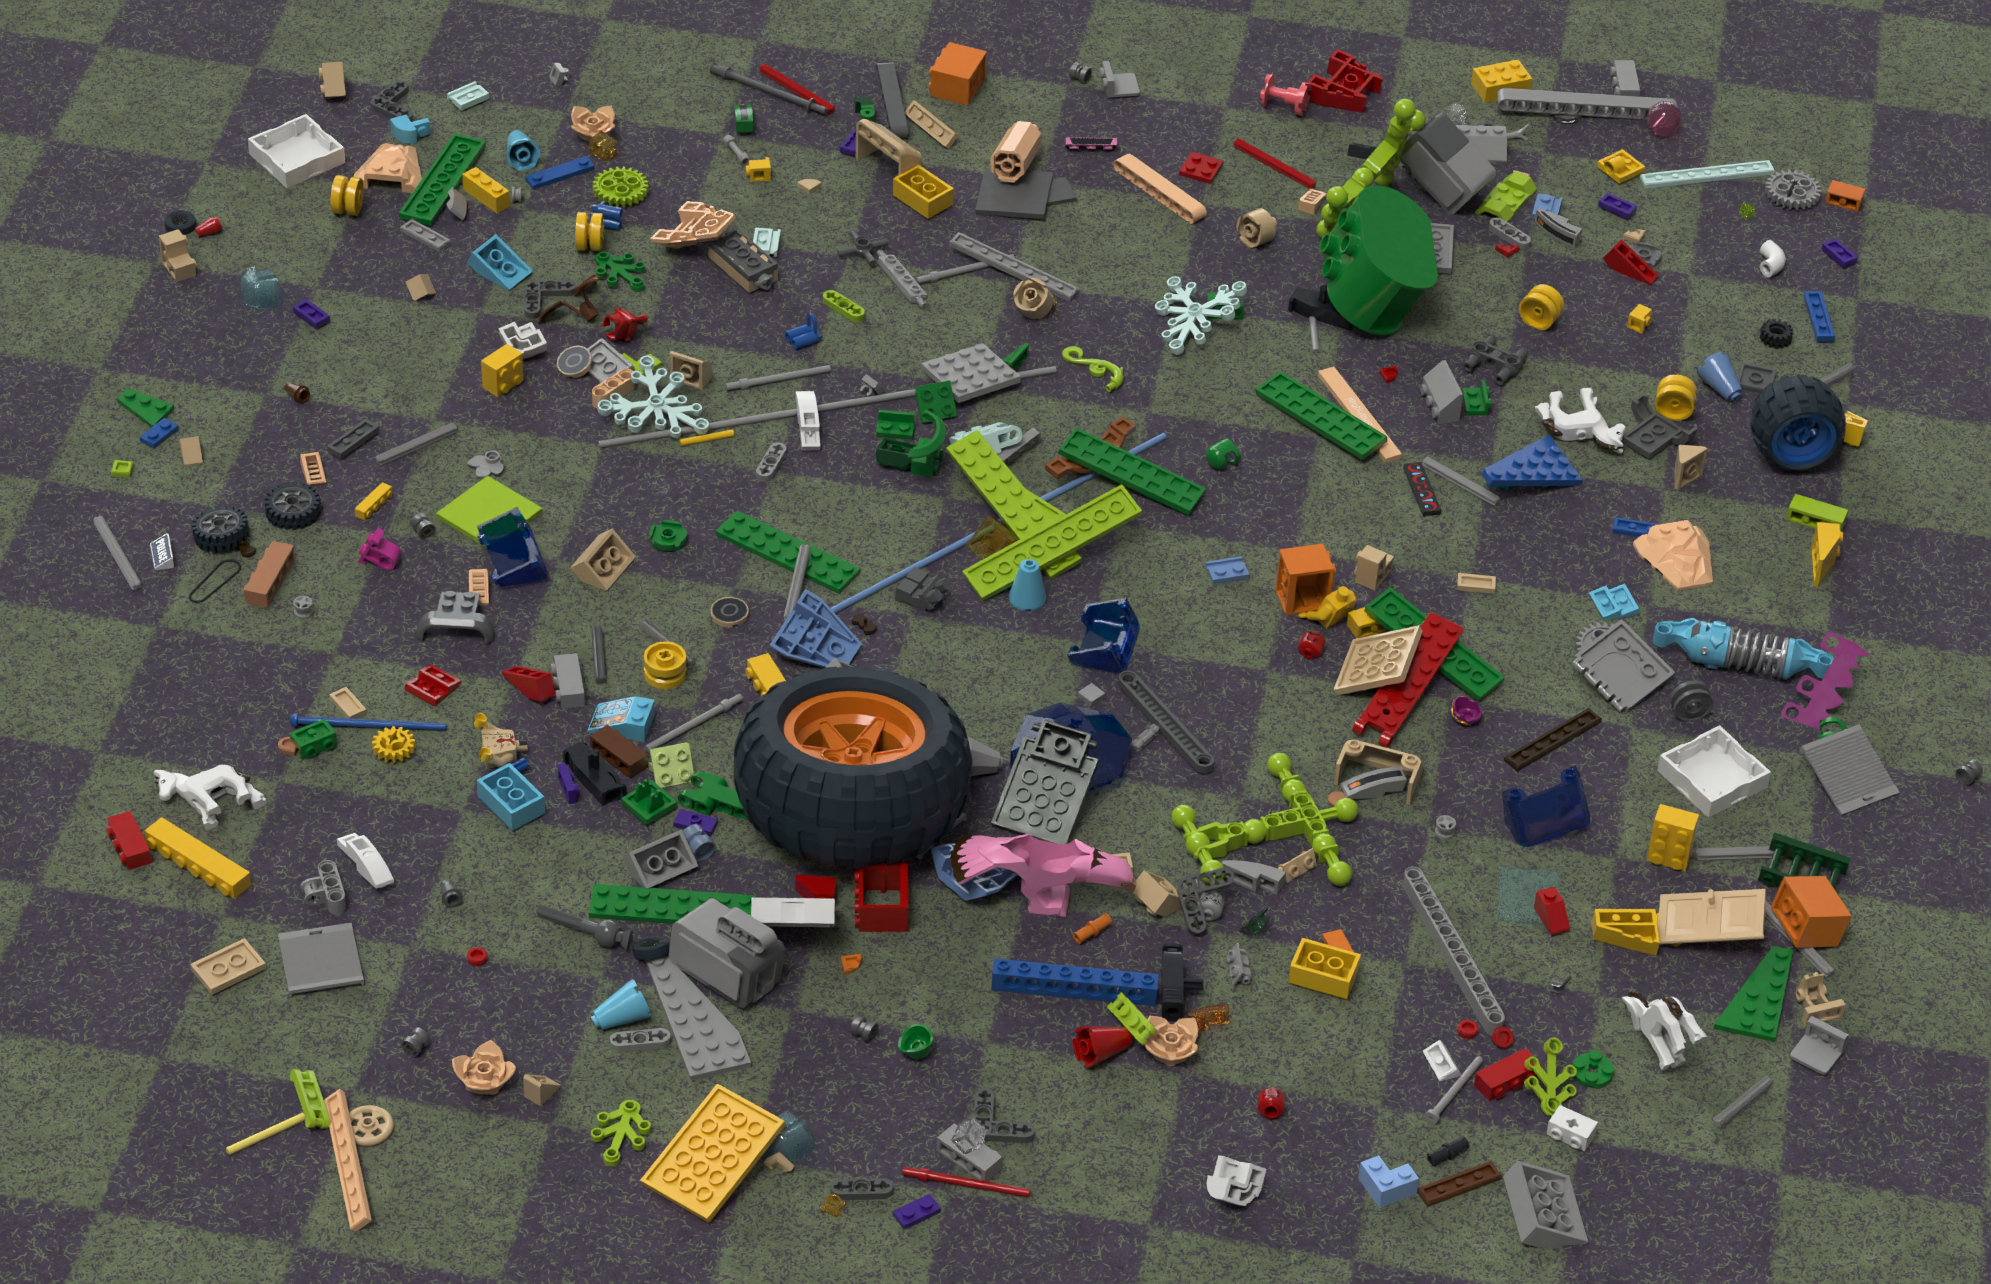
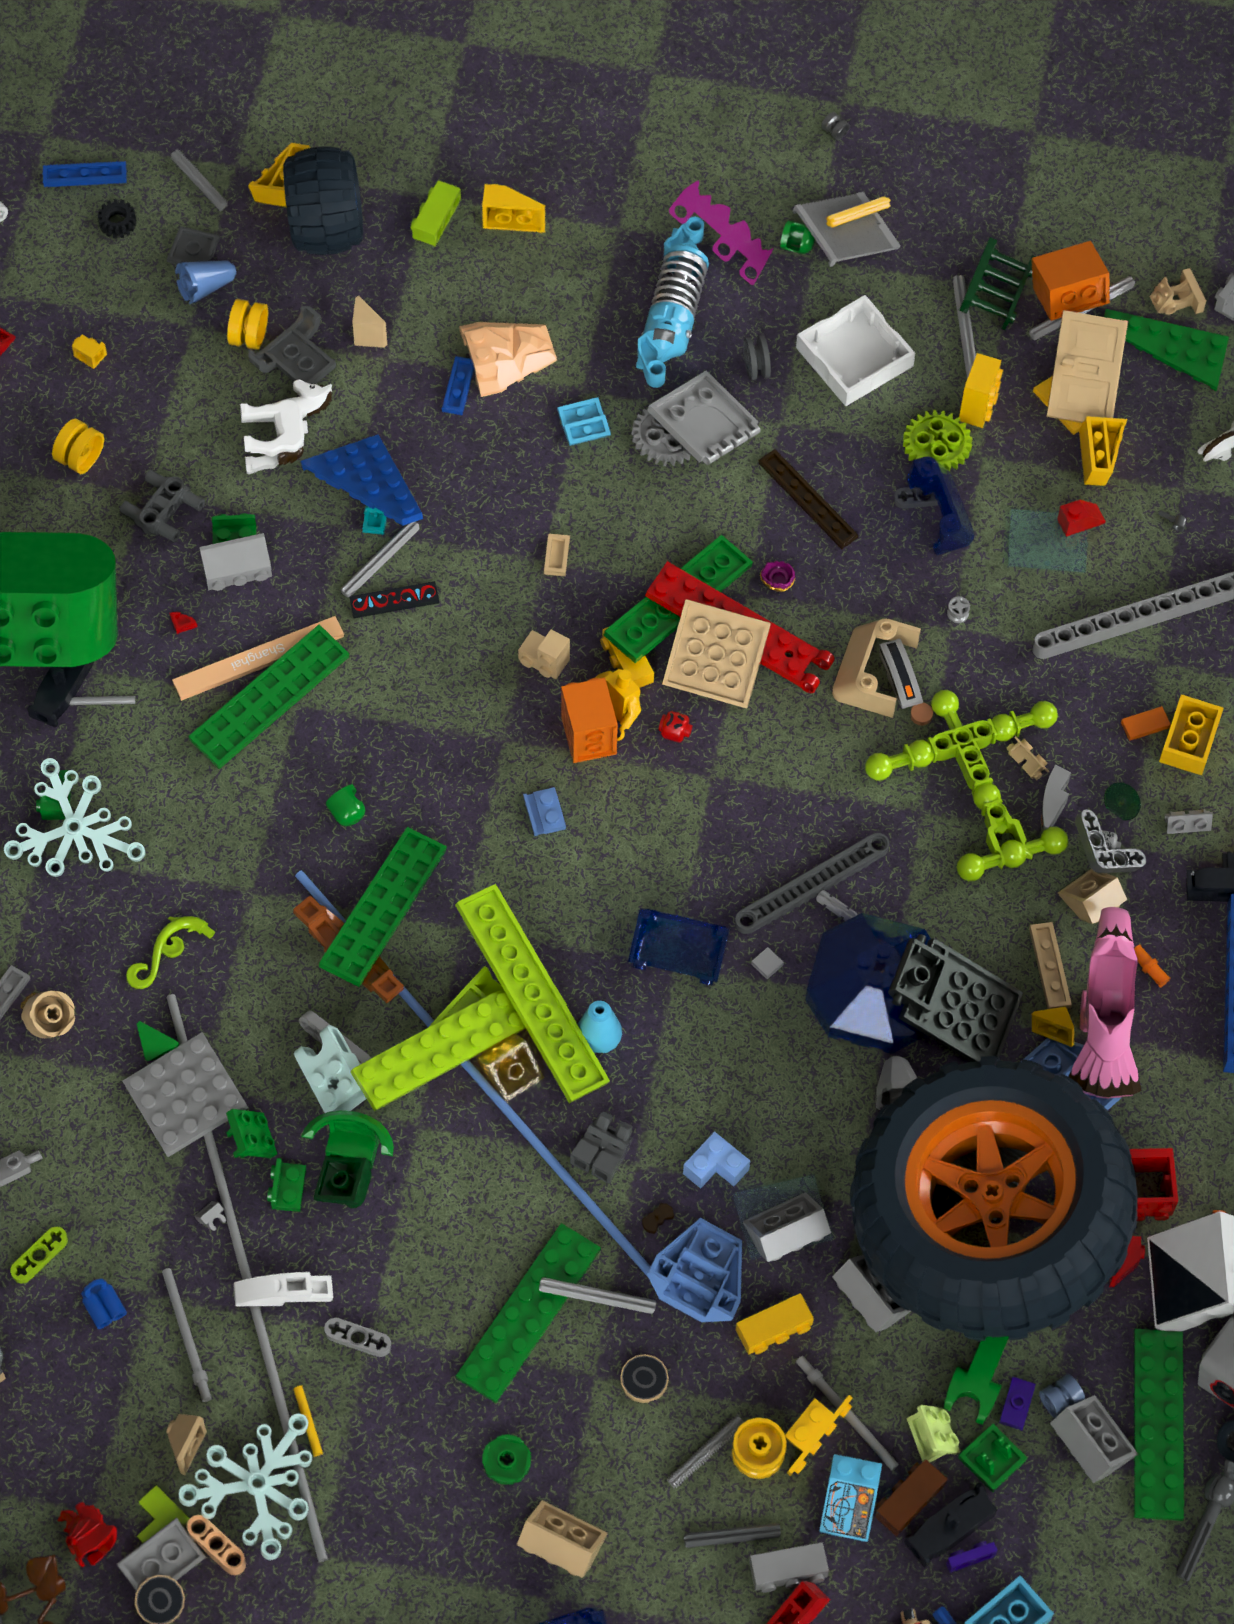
camera: 90 degrees left, 20 degrees up
(676, 693) = (811, 1427): none -> yellow bracket
(909, 652) = (716, 1157): none -> light blue brick
(1622, 822) = (938, 440): none -> lime gear
(1867, 776) = (858, 212): none -> yellow axle

